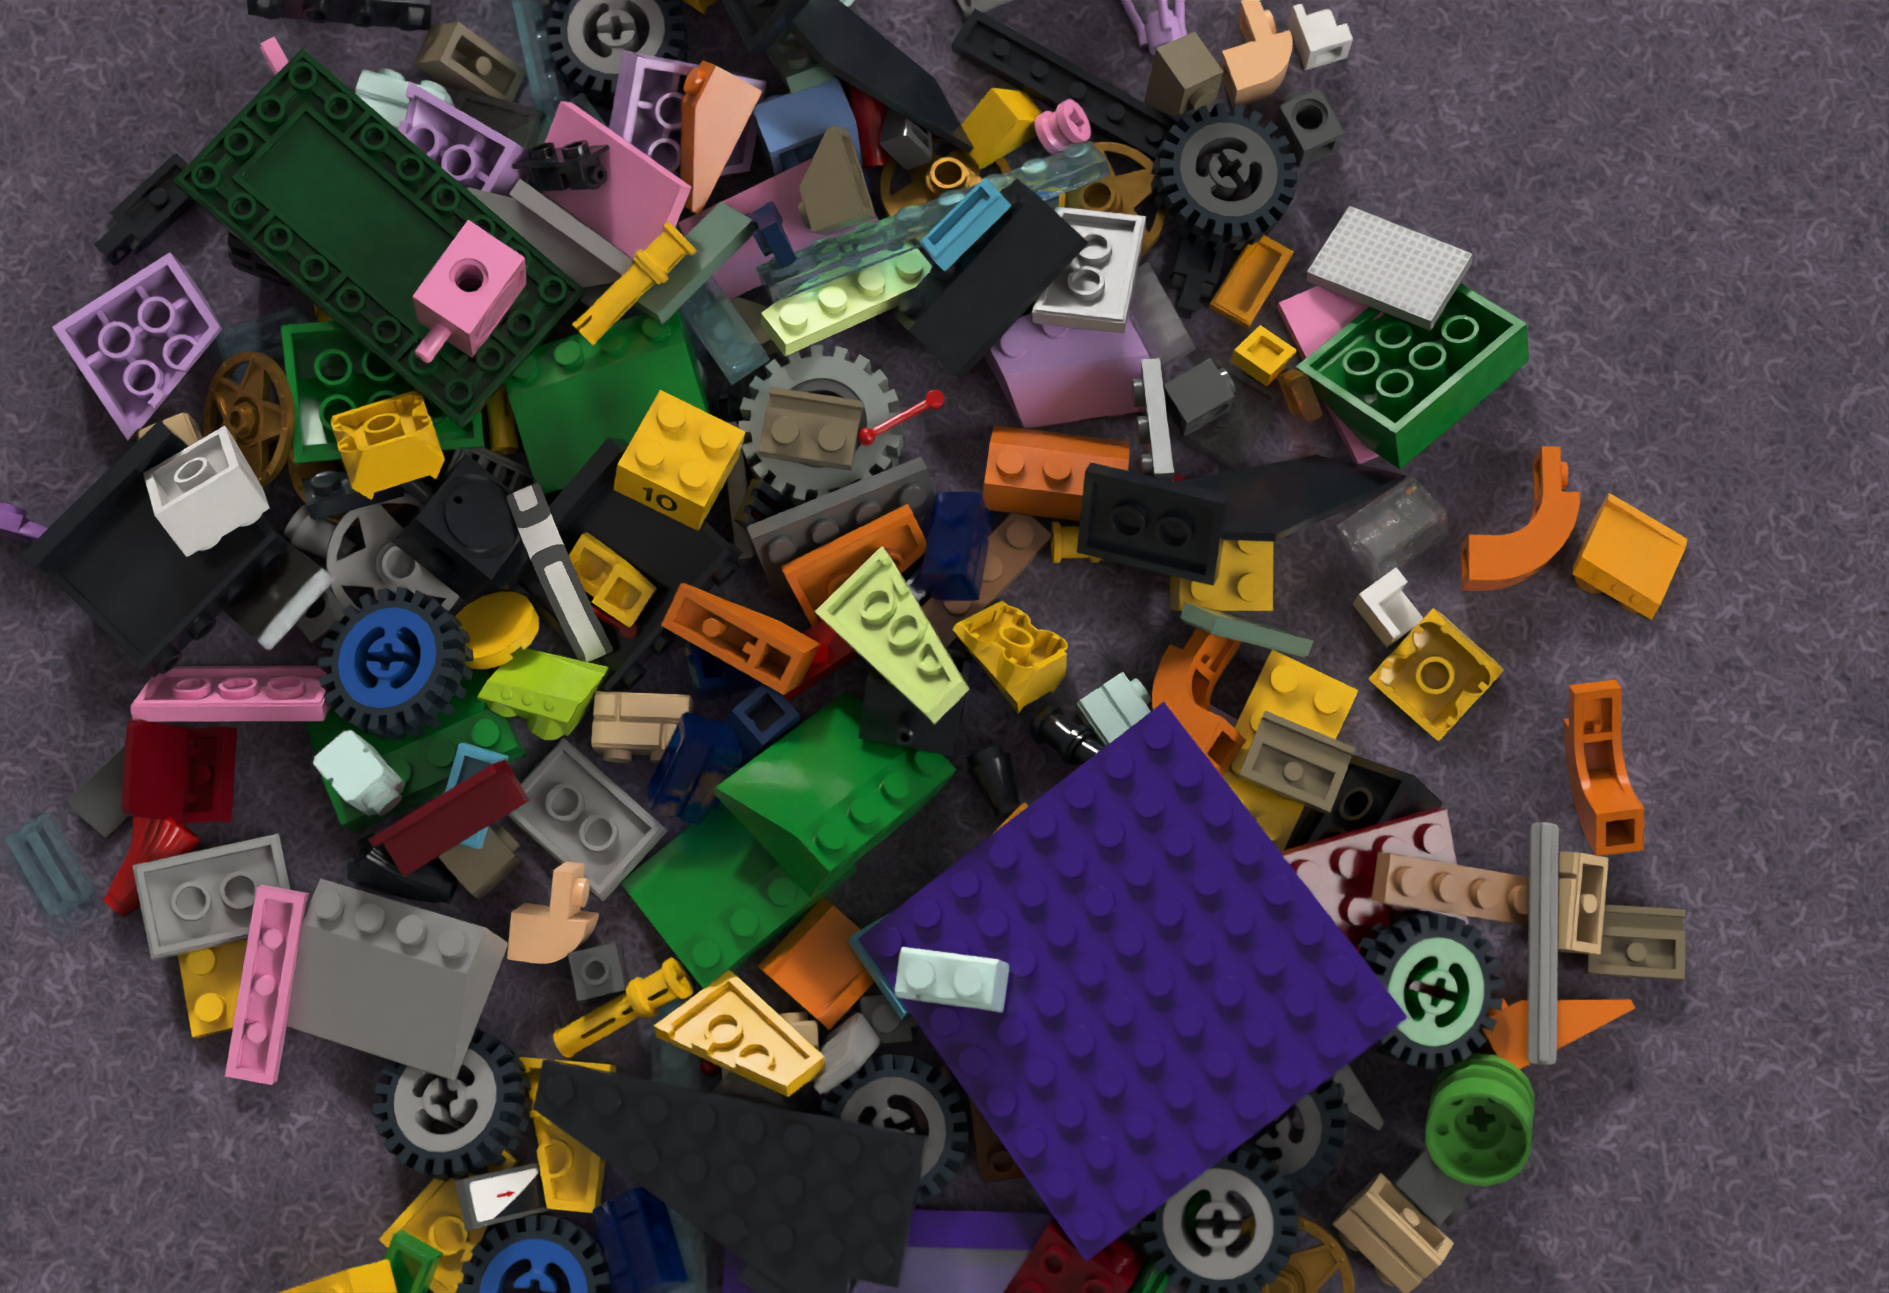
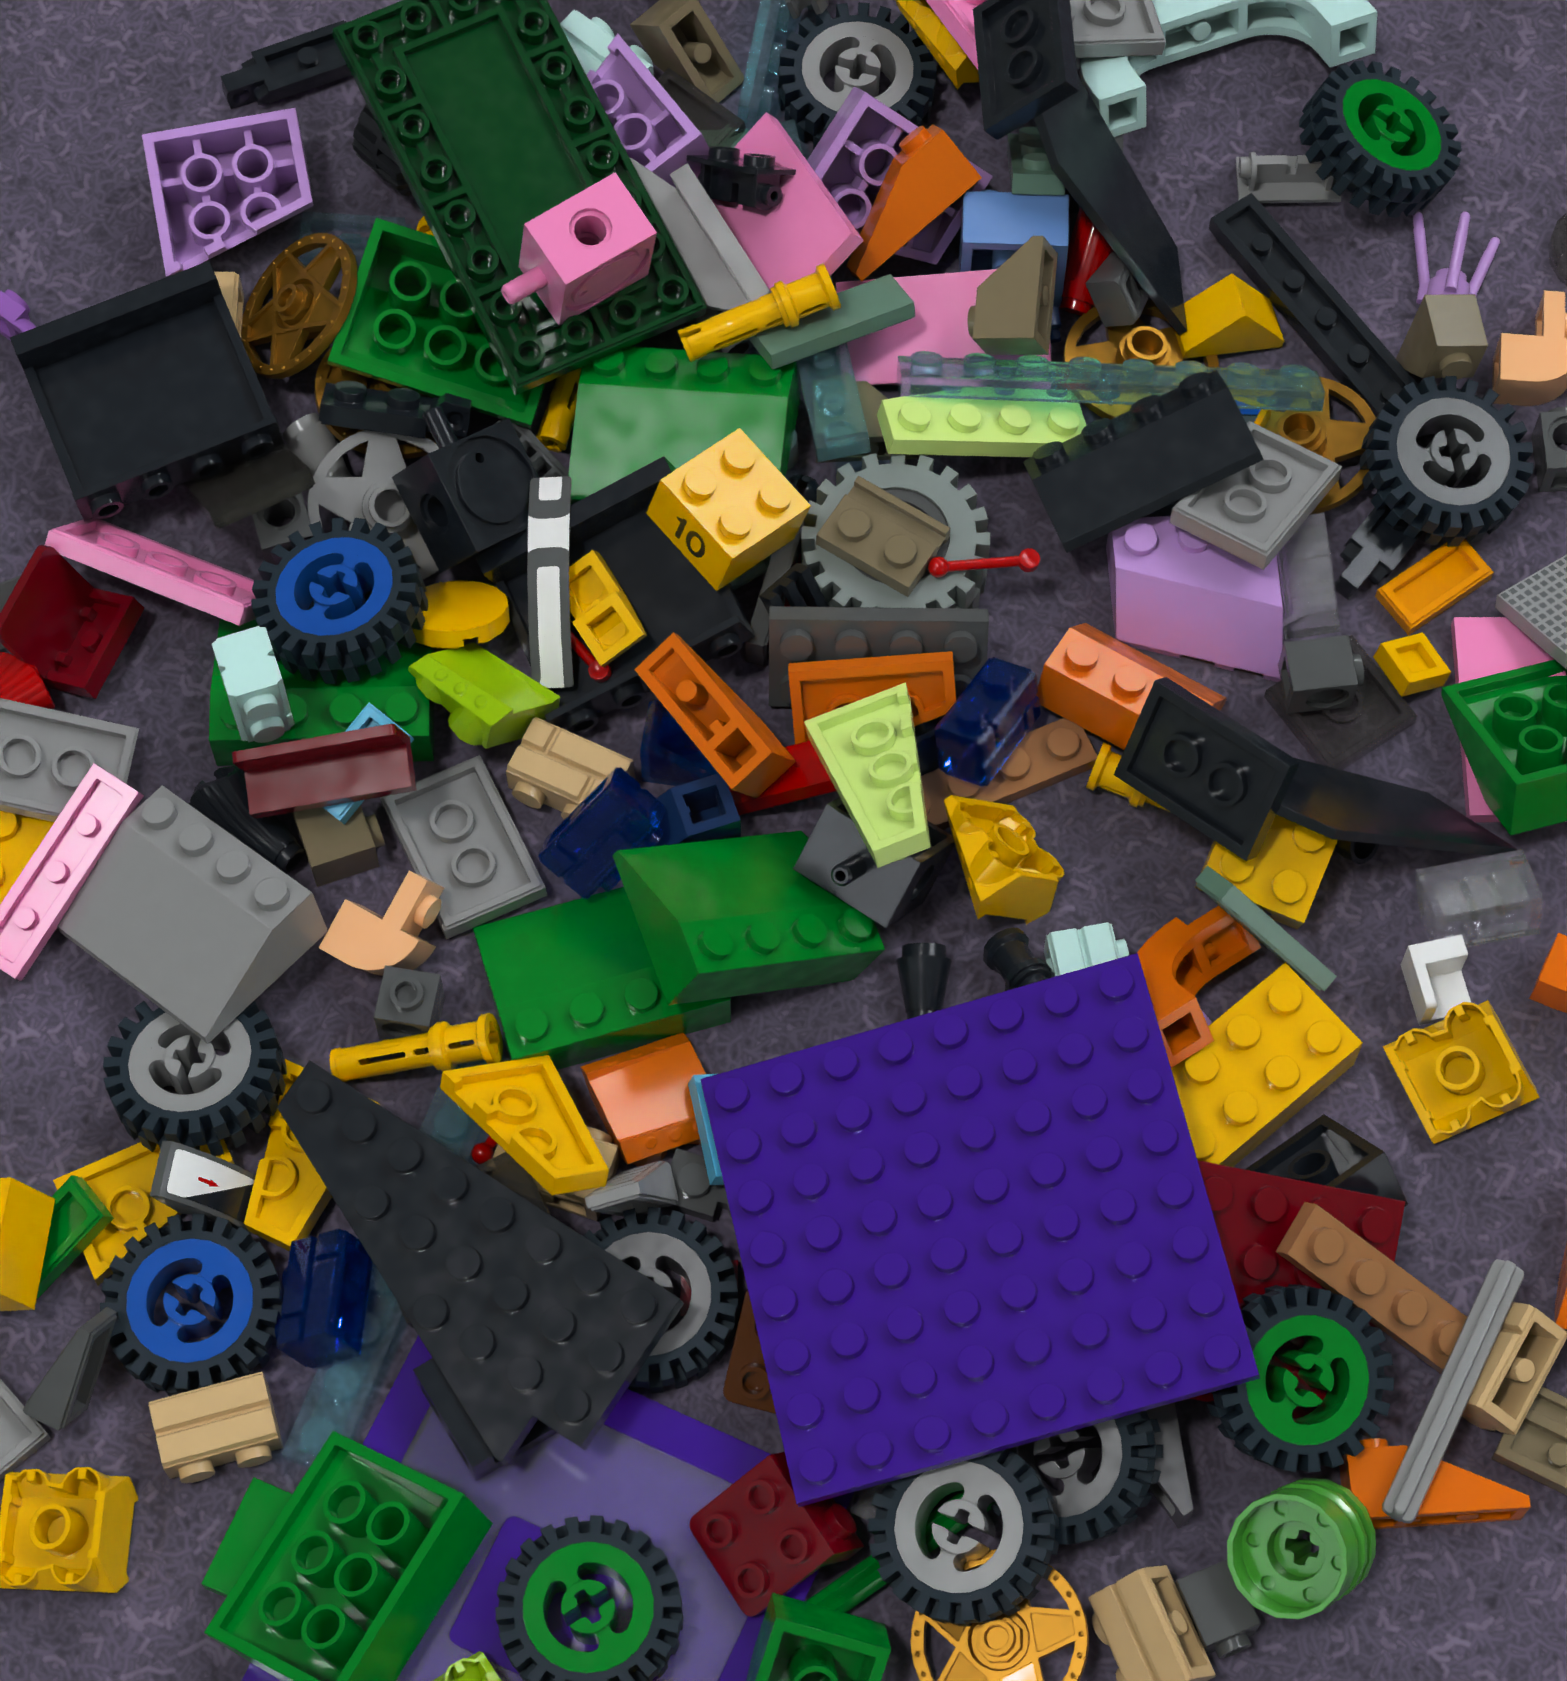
camera: 20 degrees right, 10 degrees down
(205, 492) = (223, 352): white slope -> none
(388, 443) = (432, 375): yellow slope -> none
(771, 235) = (927, 325): dark blue plate -> none
(951, 979) = (781, 1147): light aqua brick -> none
(965, 224) = (1139, 392): medium azure tile -> none
(1062, 127) = (1293, 344): bright pink wheel -> none
(1152, 421) = (1253, 675): wing -> none
(1296, 762) = (1258, 1082): dark tan plate -> none
(1300, 395) = (1433, 718): clear orange tile -> none

